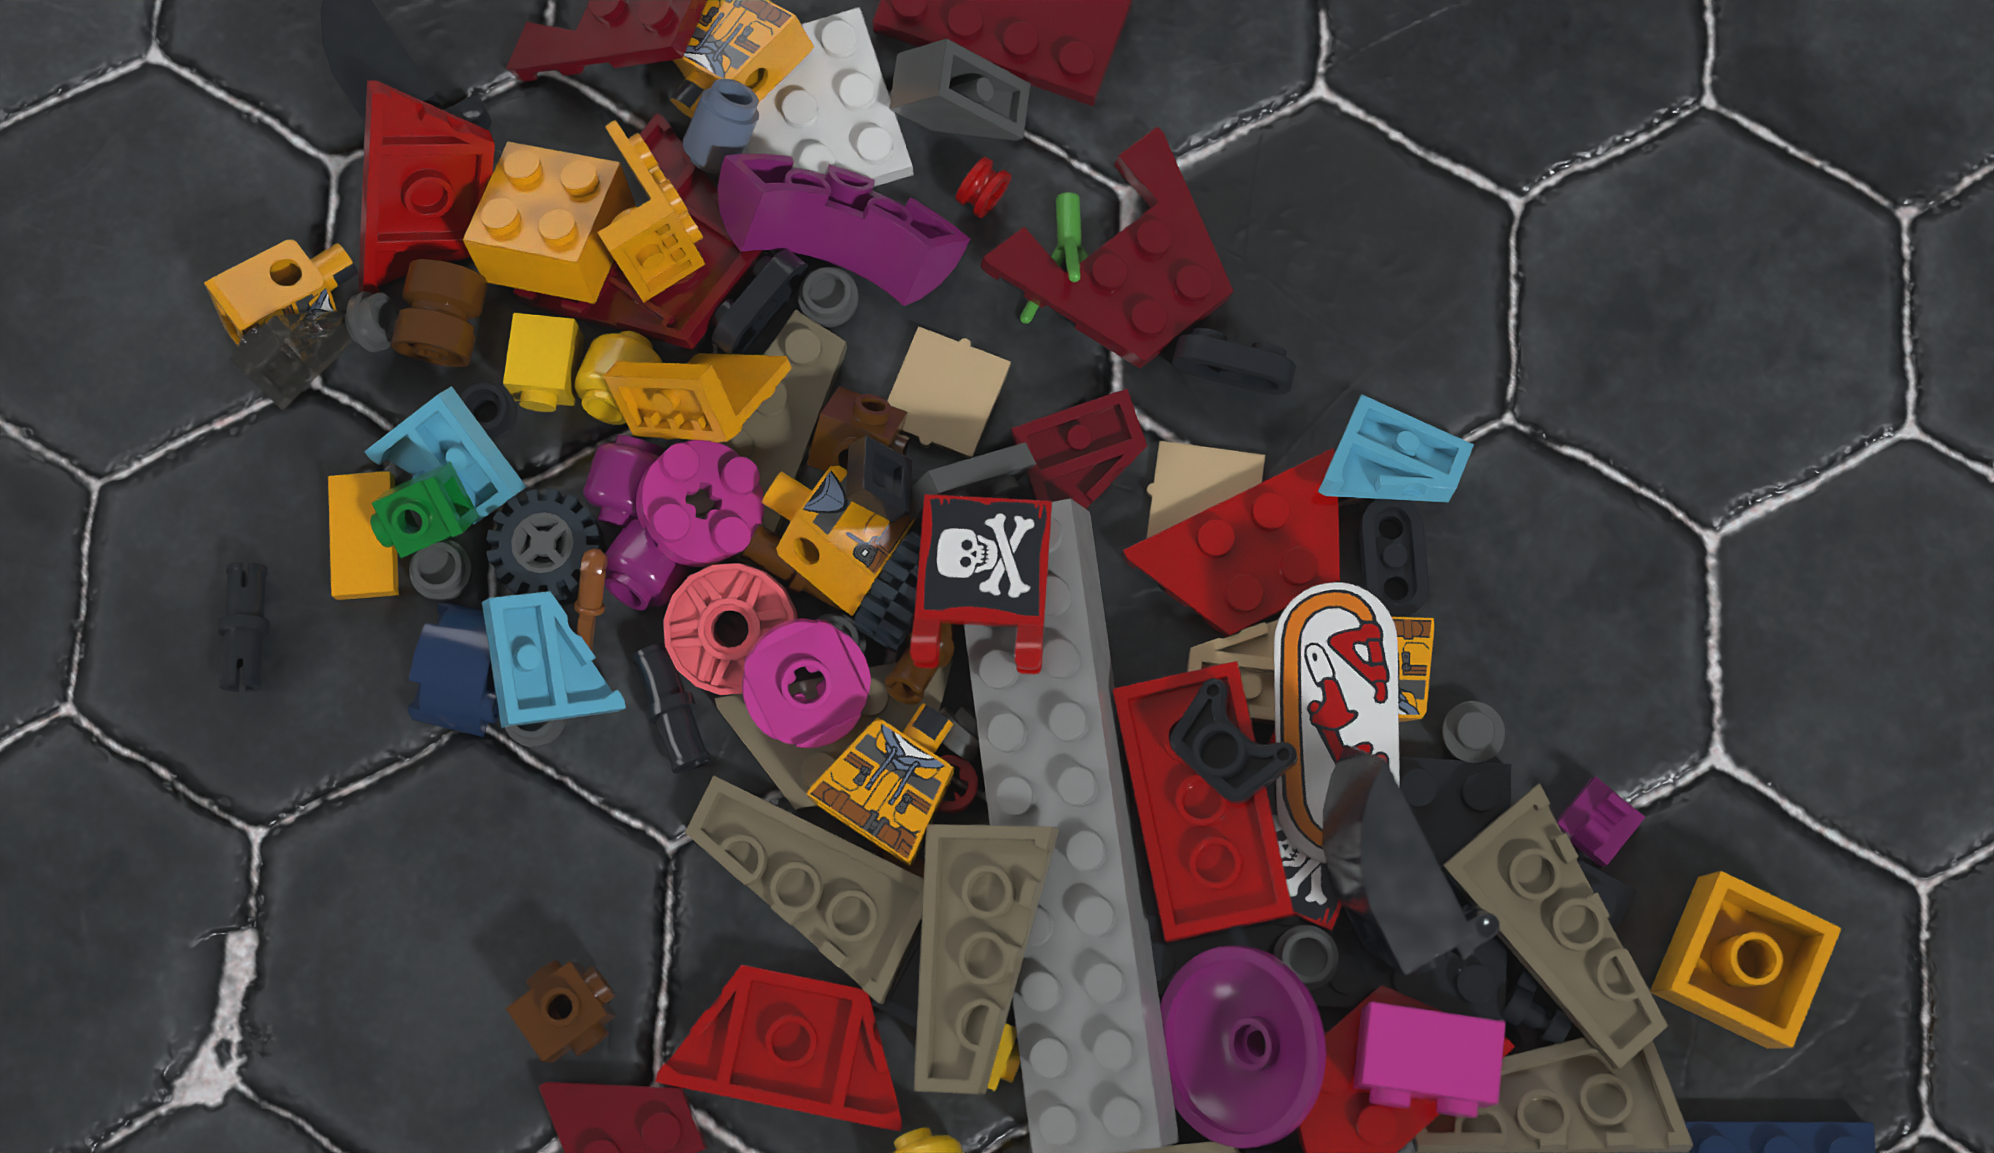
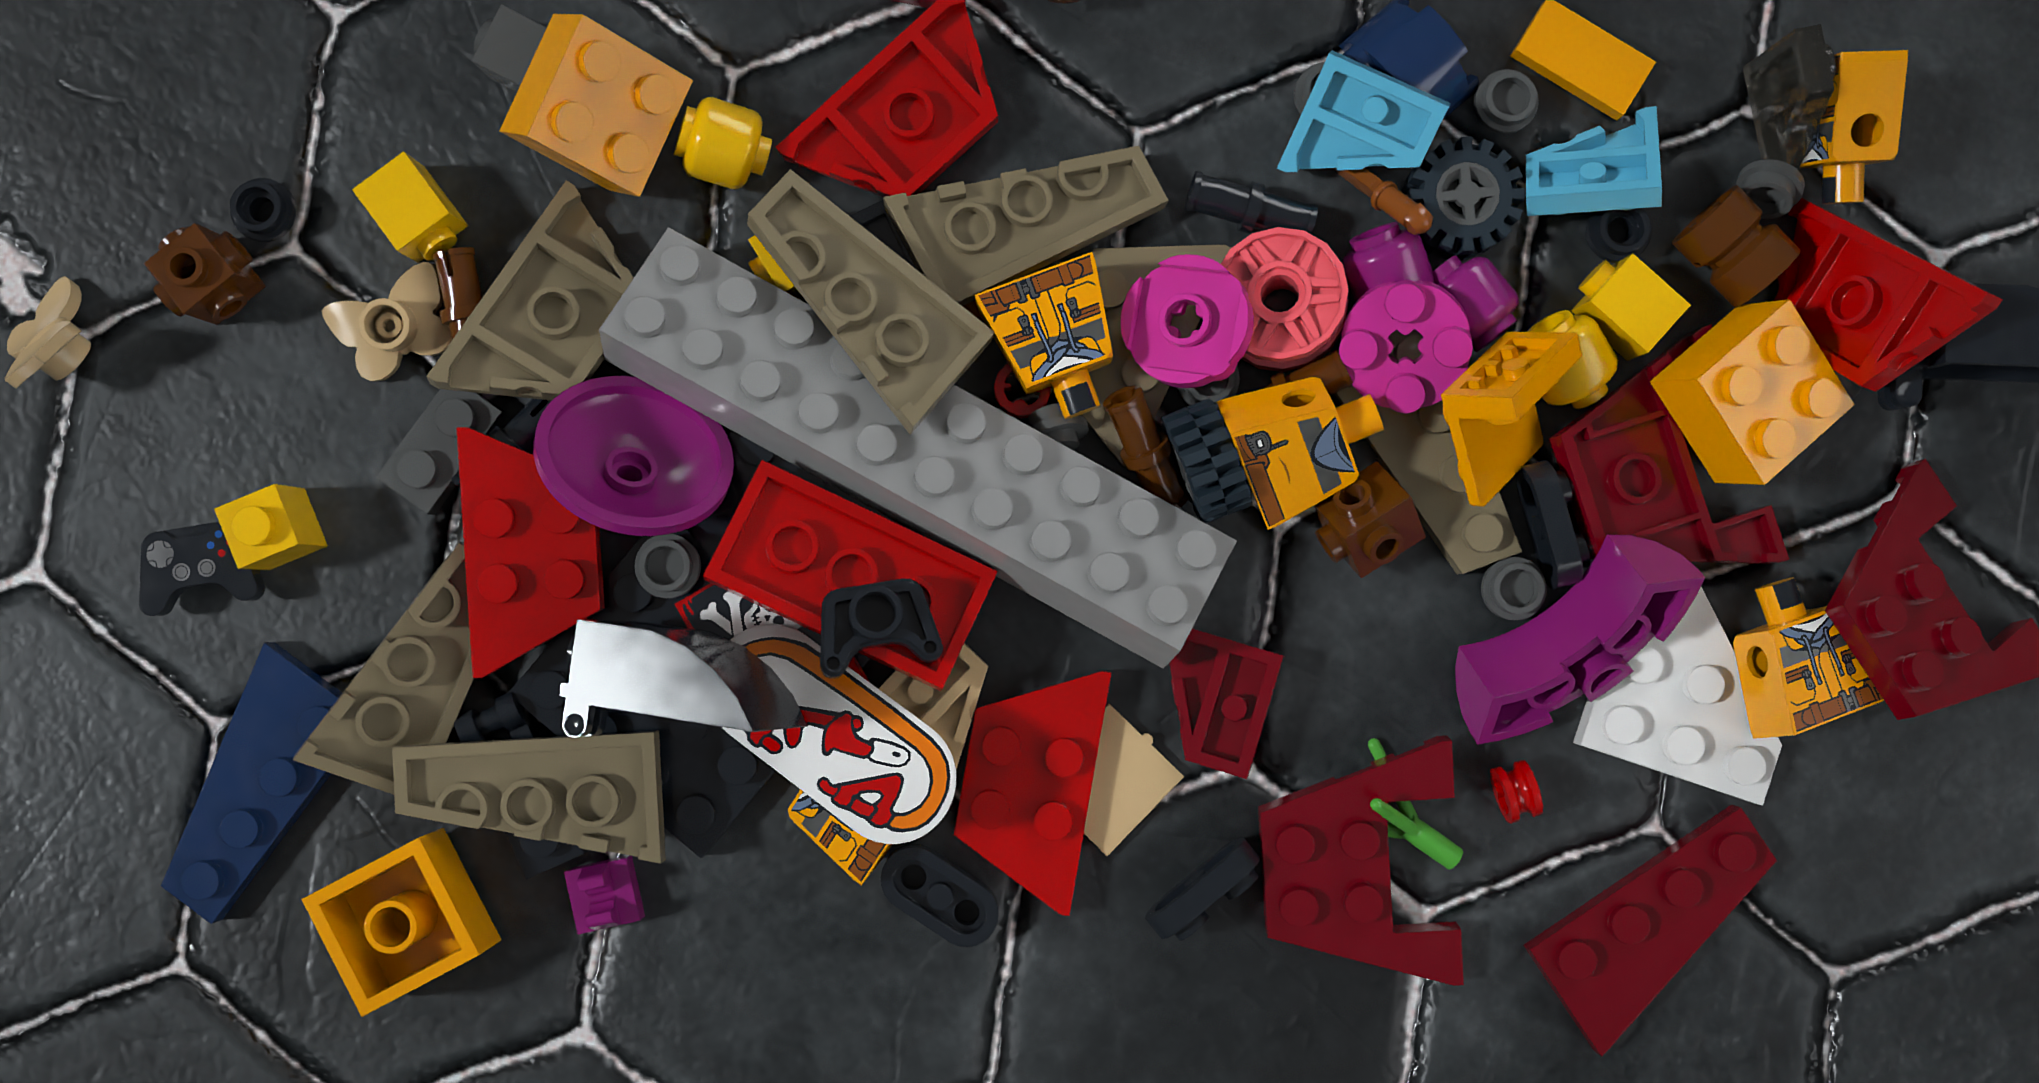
camera: 130 degrees right, 10 degrees up
(436, 498) = (1566, 113): green brick -> none
(657, 238) = (1668, 470): light orange bracket -> none
(721, 124) = (1737, 600): sand blue brick -> none
(879, 479) = (1316, 503): black plate -> none
(947, 391) = (1357, 629): tan piece -> none
(959, 92) = (1619, 833): dark grey slope -> none
(981, 476) = (1265, 560): dark grey plate -> none
(982, 567) = (1173, 531): flag -> none
(1394, 457) = (1022, 961): medium azure wing -> none
(1429, 1058) = (506, 594): dark pink brick -> none
(1473, 732) = (749, 847): dark grey plate -> none

